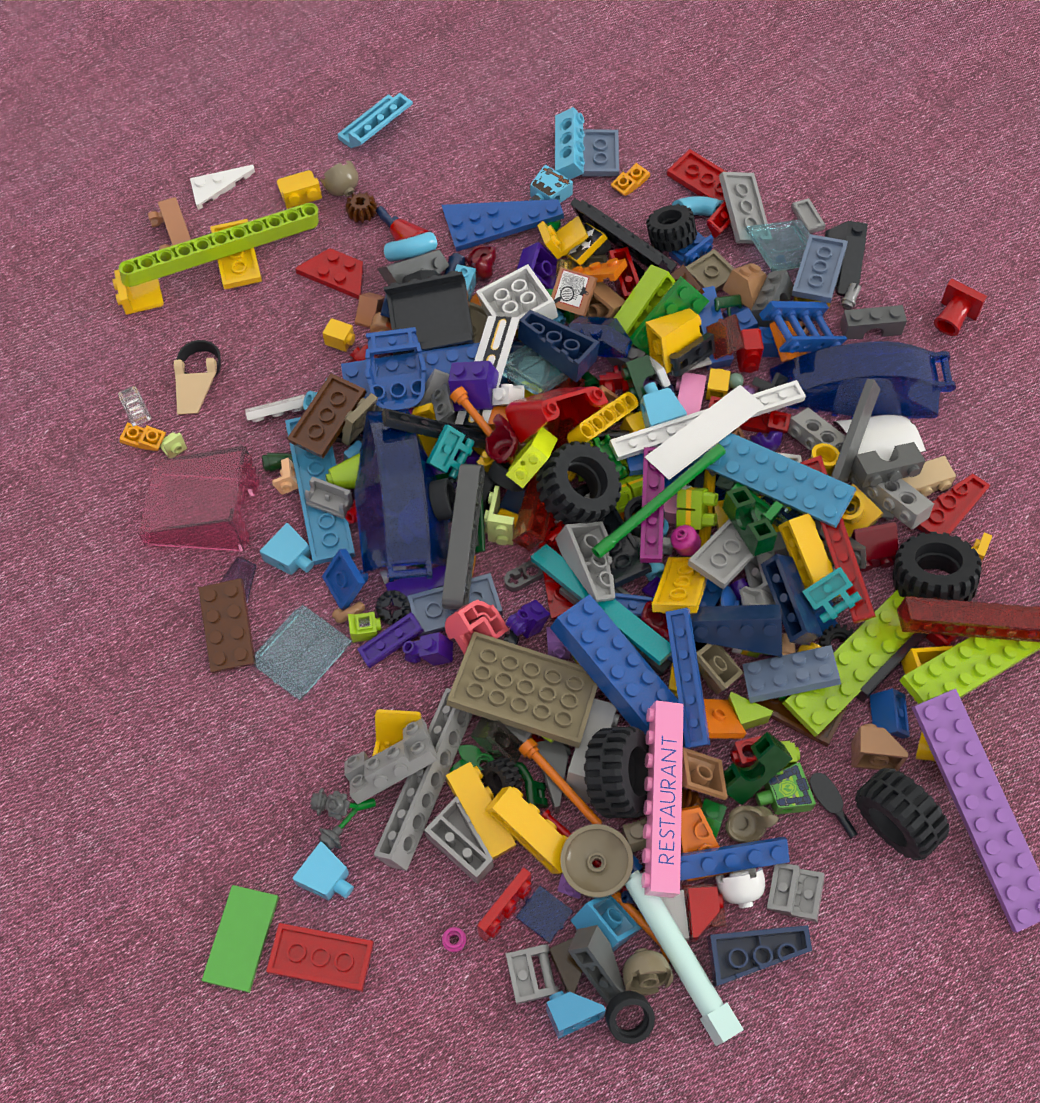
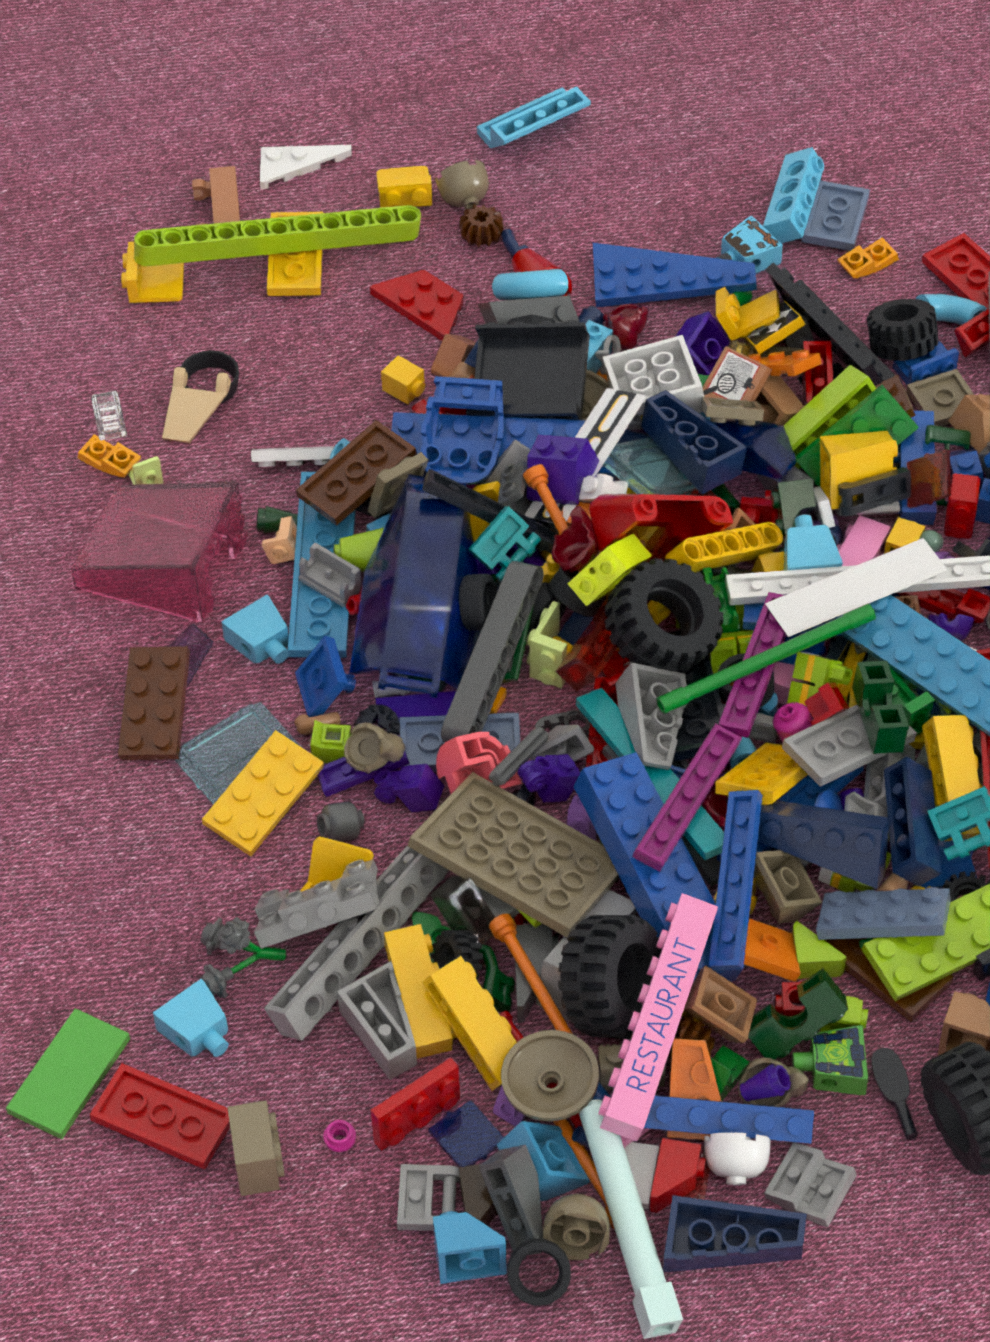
camera: 15 degrees right, 10 degrees down
(324, 678) = (263, 793): none -> yellow plate
(386, 688) = (340, 821): none -> dark grey head
(394, 966) = (256, 1147): none -> dark tan brick
(396, 628) = (372, 747): none -> dark tan hair
(474, 287) = (605, 352): none -> light grey piece
(503, 612) = (518, 756): none -> dark grey axle
(526, 591) = (565, 740): none -> light grey slope
(578, 314) = (722, 409): none -> dark tan plate
(634, 621) = (687, 797): none -> magenta tile
(707, 524) = (826, 703): none -> red panel
(750, 826) = (767, 1083): none -> dark purple cone

